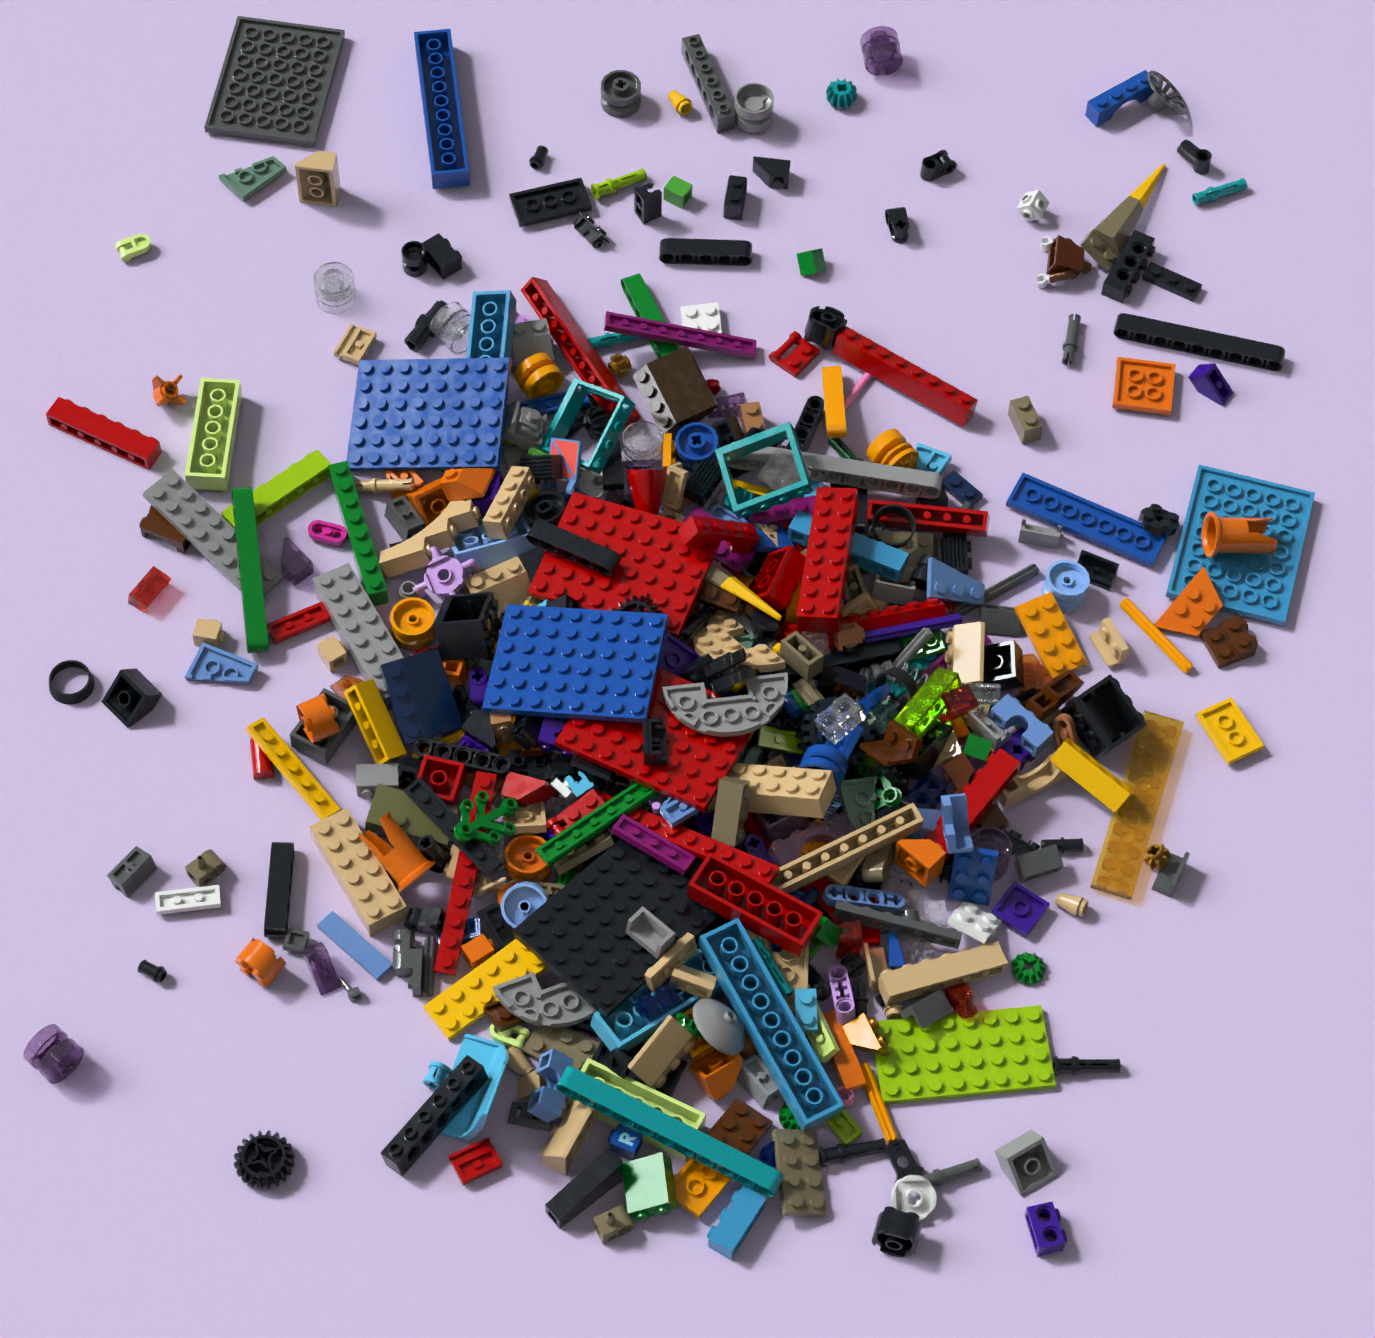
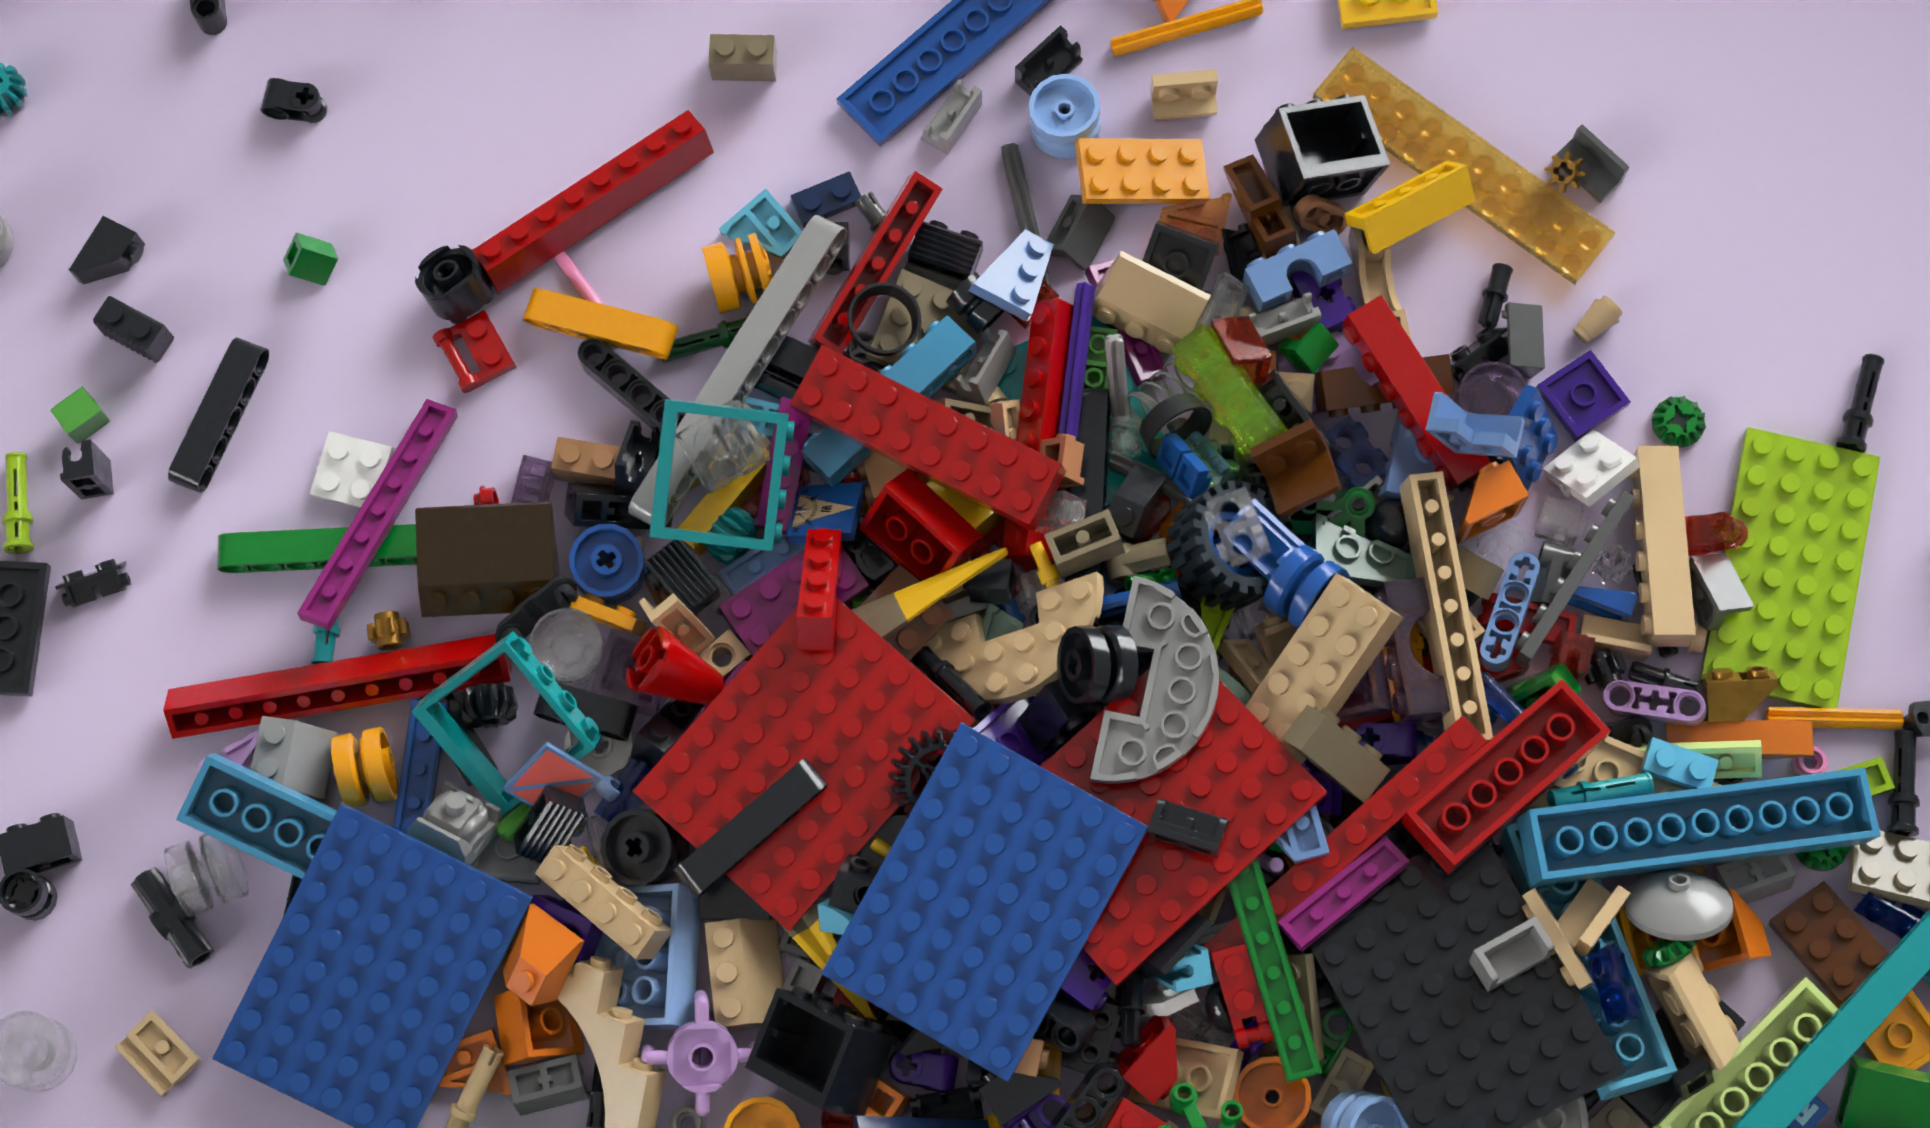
camera: 65 degrees left, 15 degrees up
(665, 423) = (554, 595): none -> black piece

